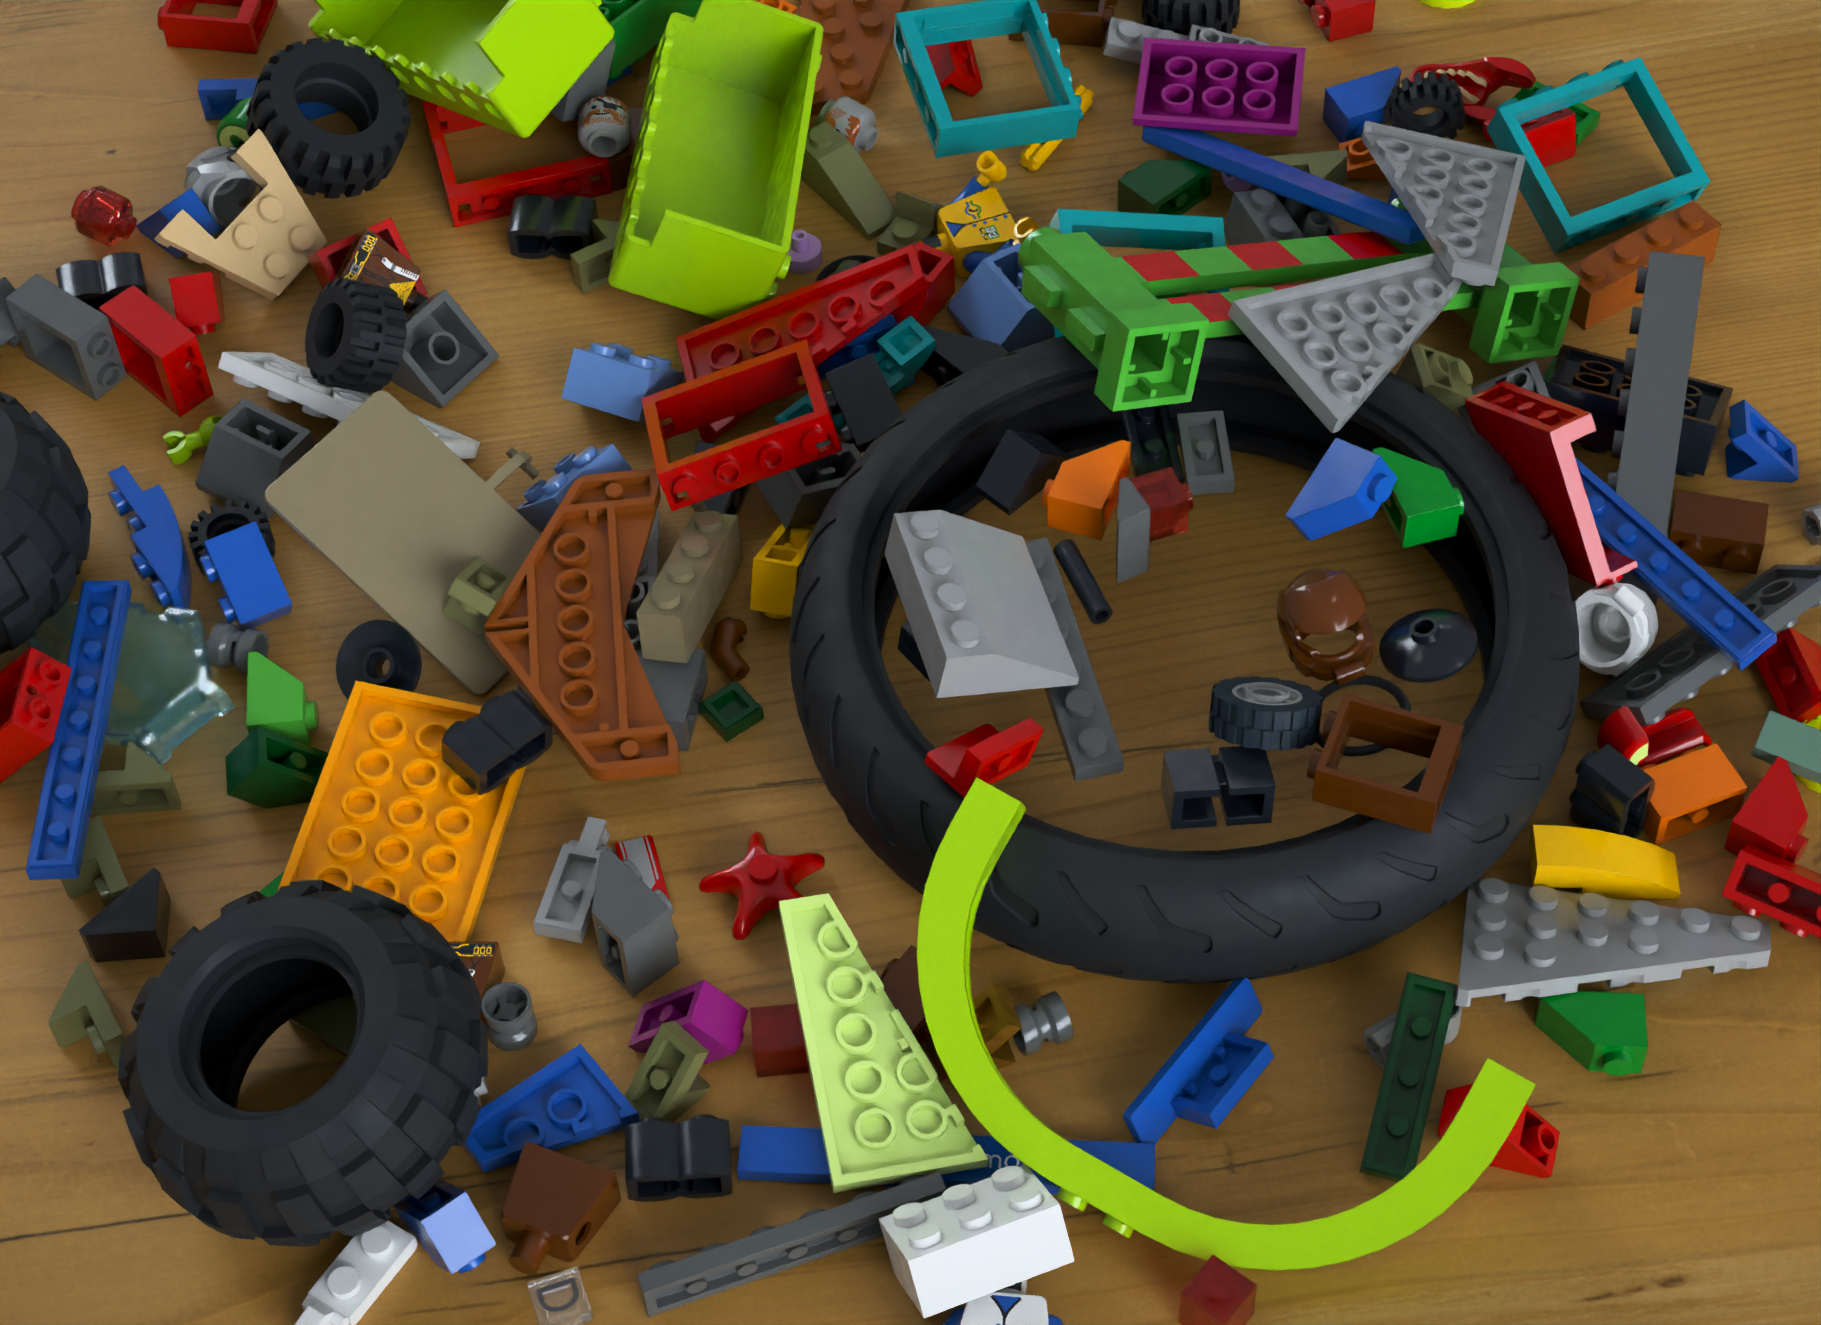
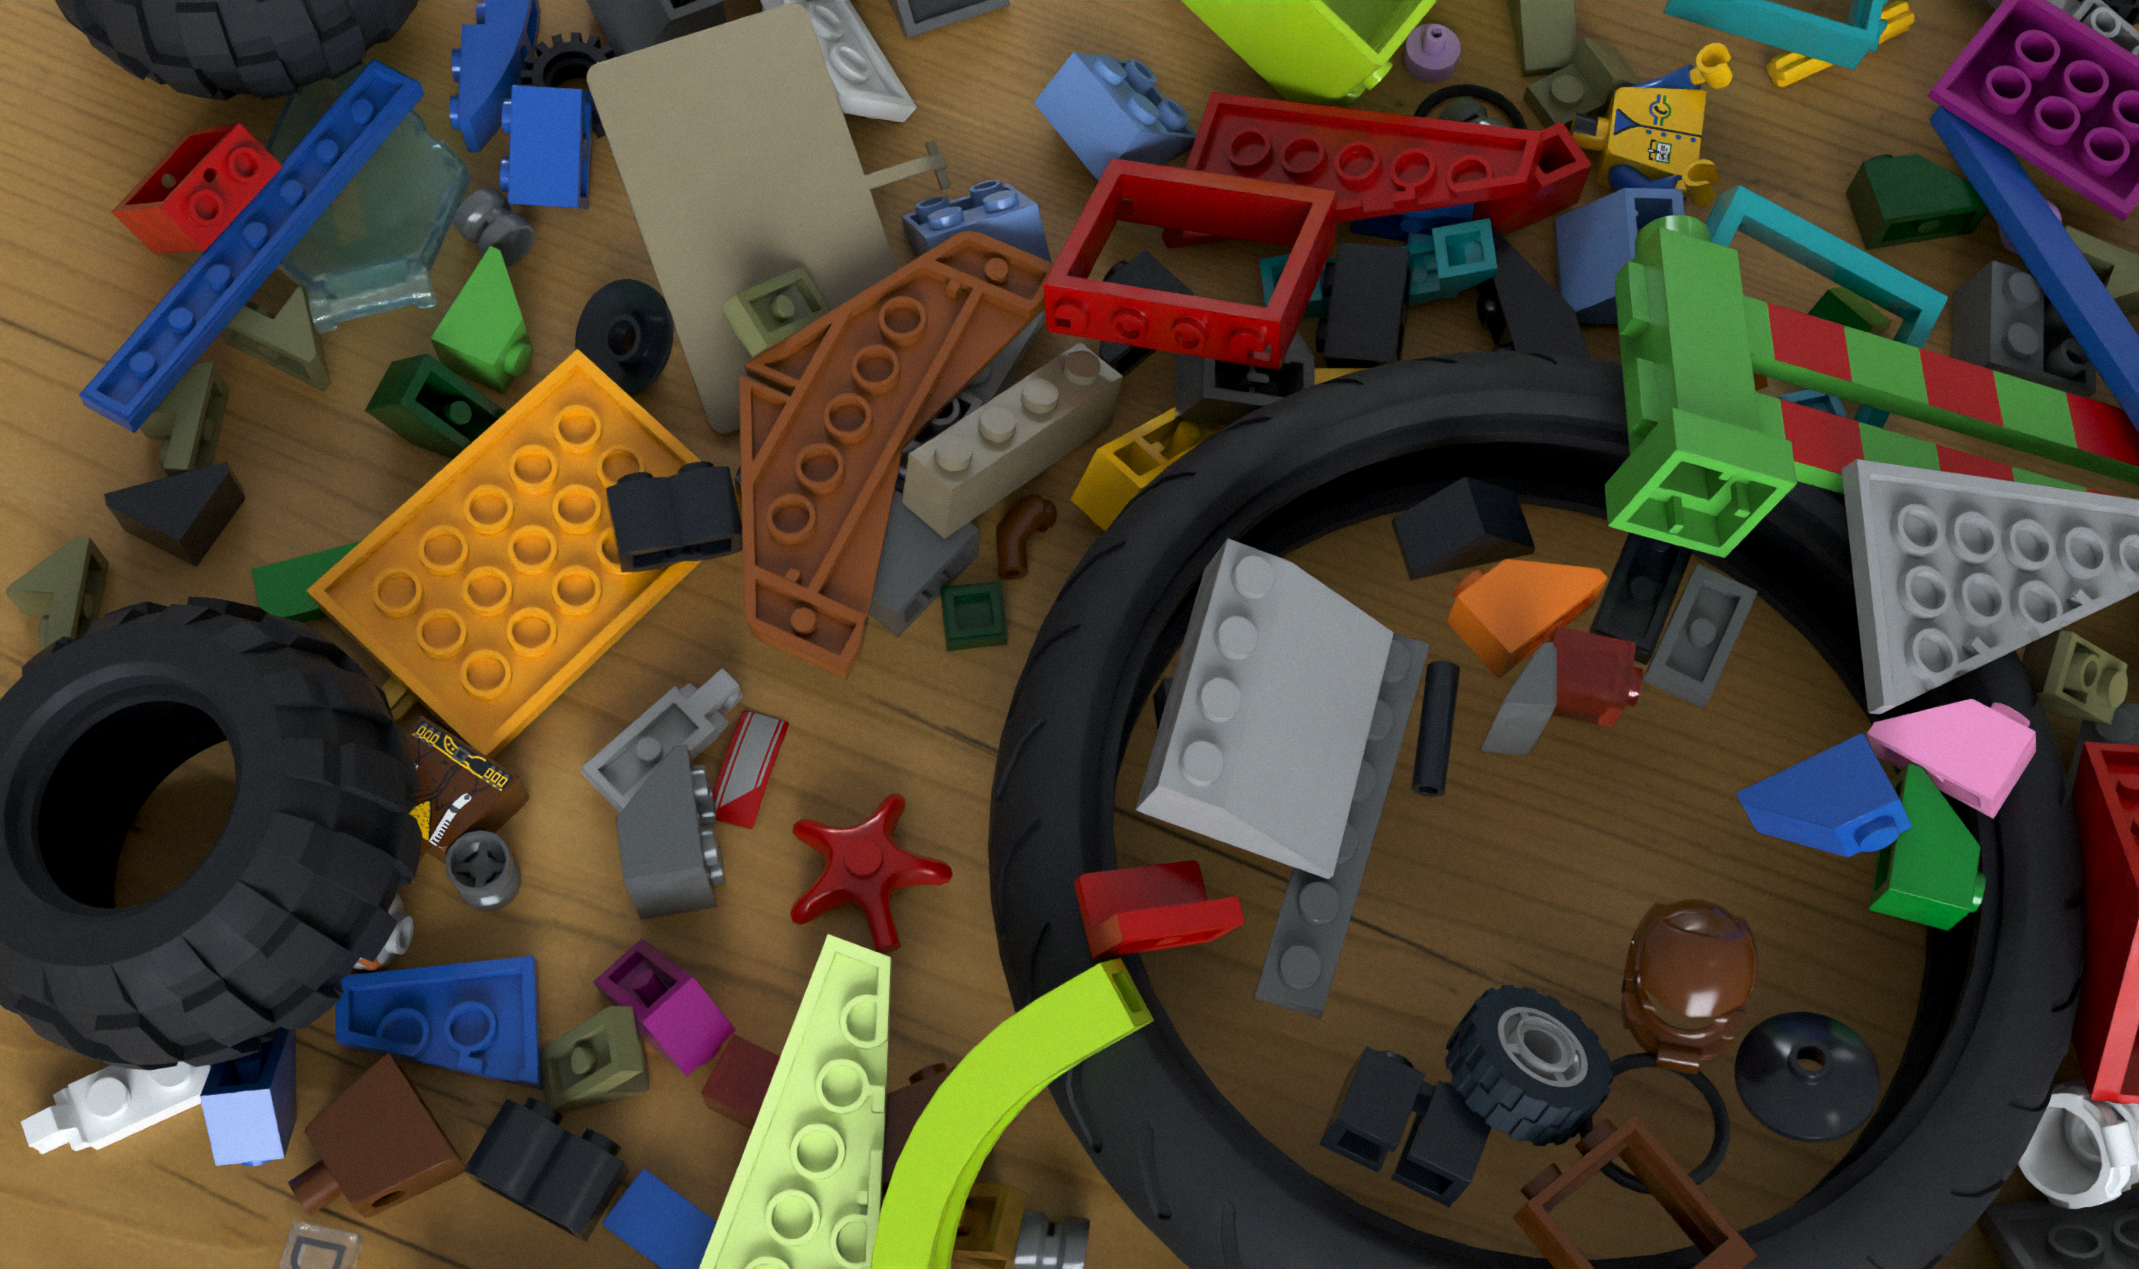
camera: 25 degrees right, 15 degrees up
(1401, 422) = (1963, 749): none -> bright pink slope

